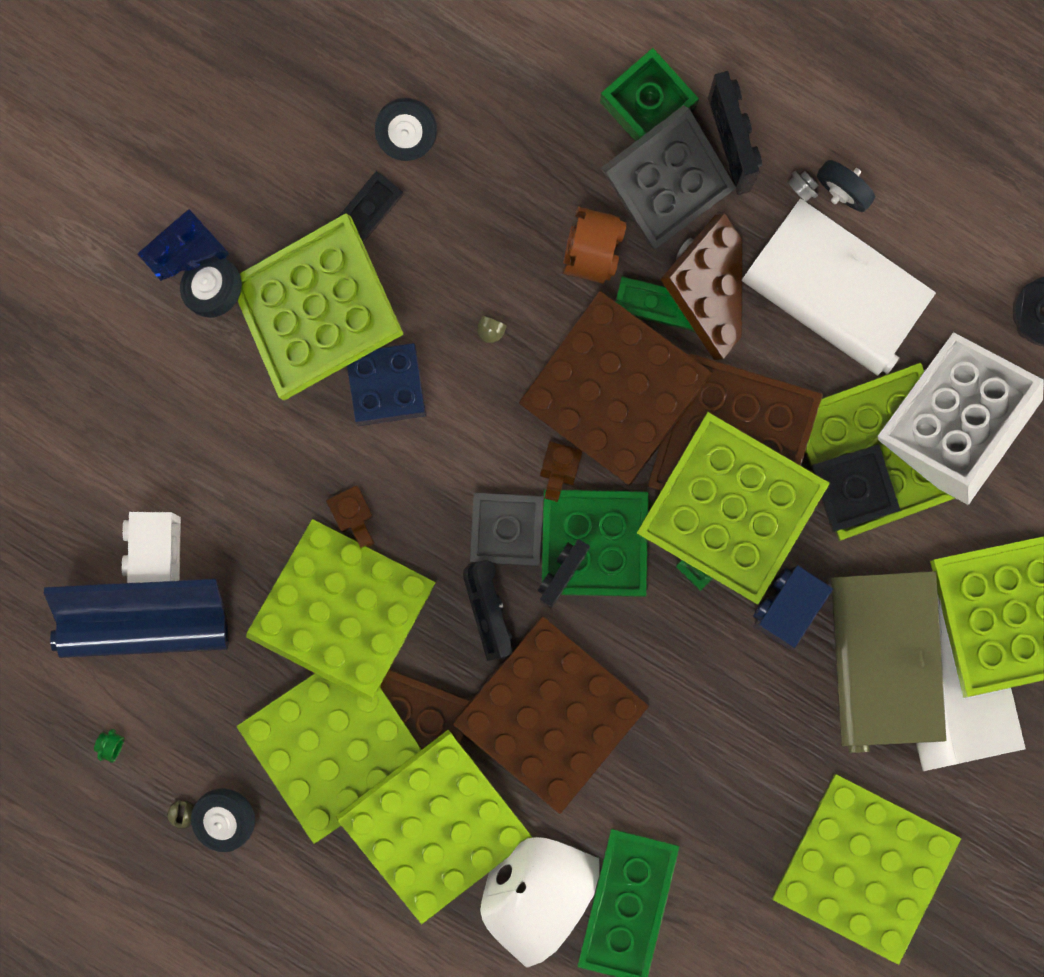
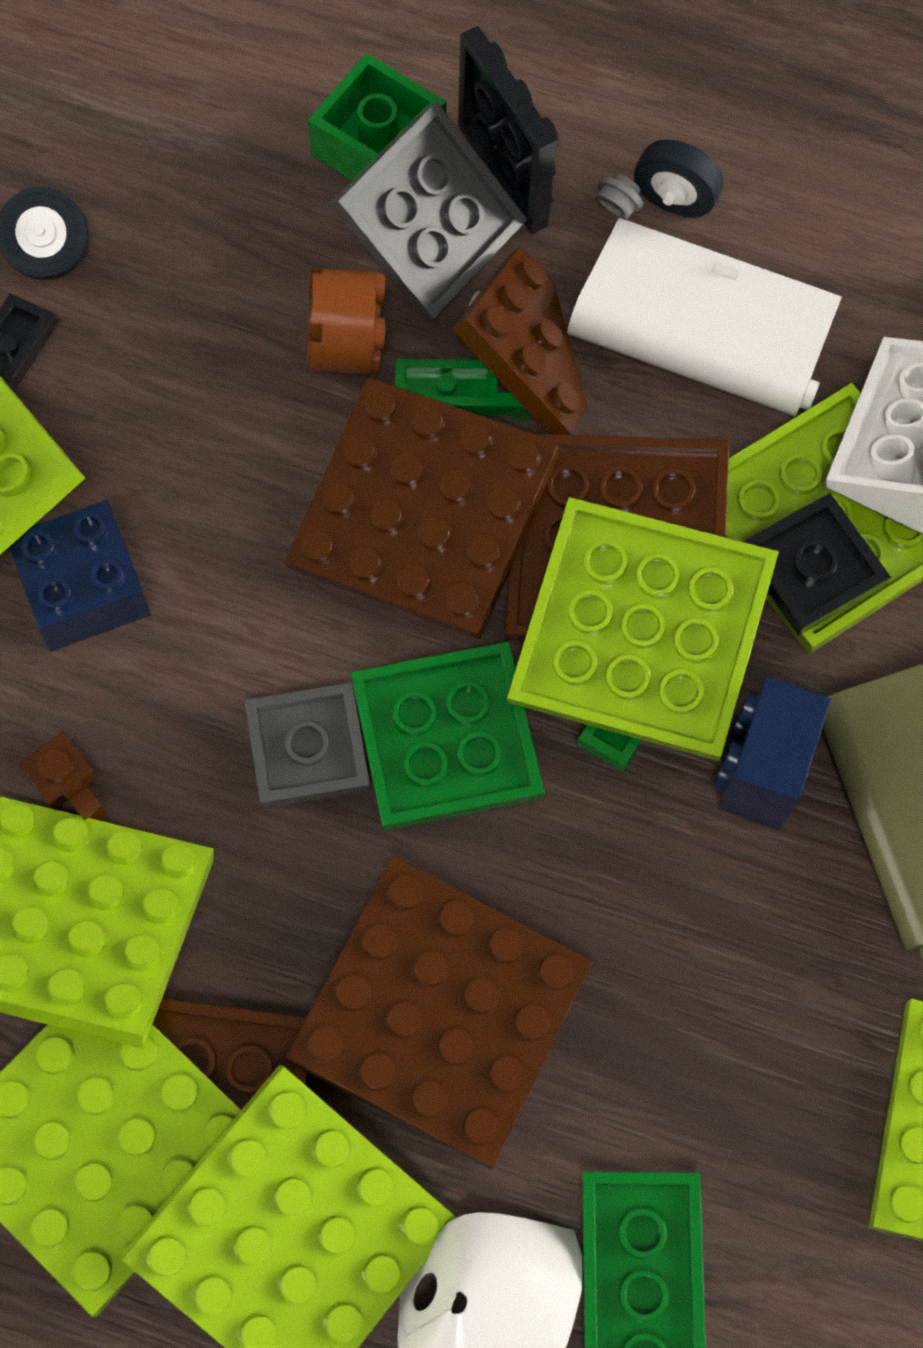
camera: 20 degrees left, 15 degrees down
(487, 610) = (304, 871): black plate -> none
(490, 329) = (221, 469): olive hinge -> none
(559, 467) = (367, 634): reddish brown plate -> none
(570, 559) = (401, 790): black plate -> none

